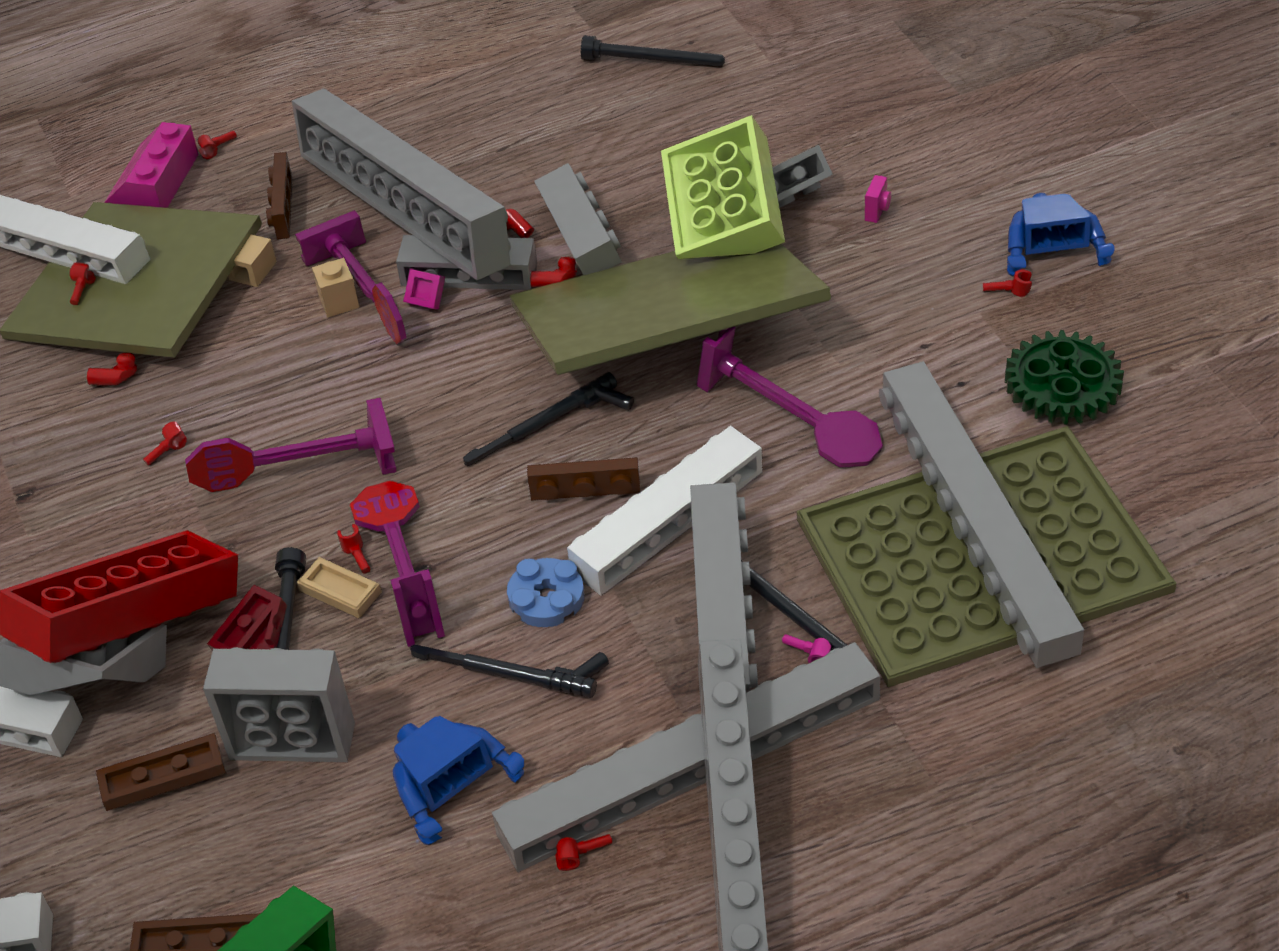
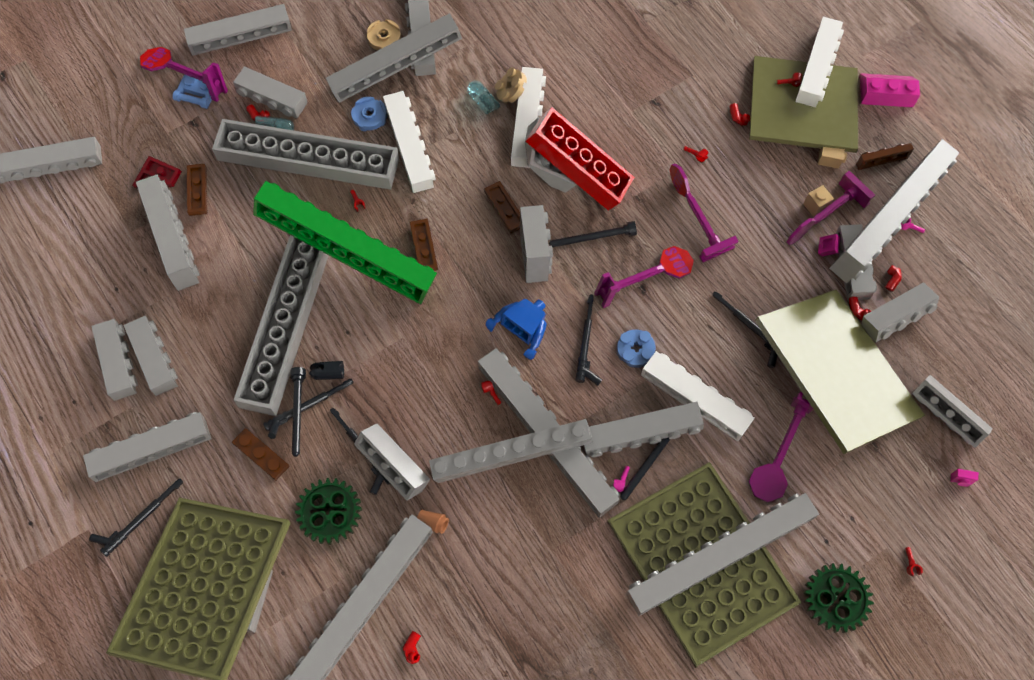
camera: 75 degrees right, 20 degrees up
(209, 146) = (919, 108): red hand -> none
(253, 622) = (585, 222): dark red wing -> none
(339, 587) = (622, 254): tan tile -> none
(353, 545) = (649, 254): red hand -> none
(583, 478) = (708, 352): reddish brown plate -> none
(722, 193) = (925, 384): yellowish green slope -> none
(1054, 225) = (965, 584): blue torso -> none

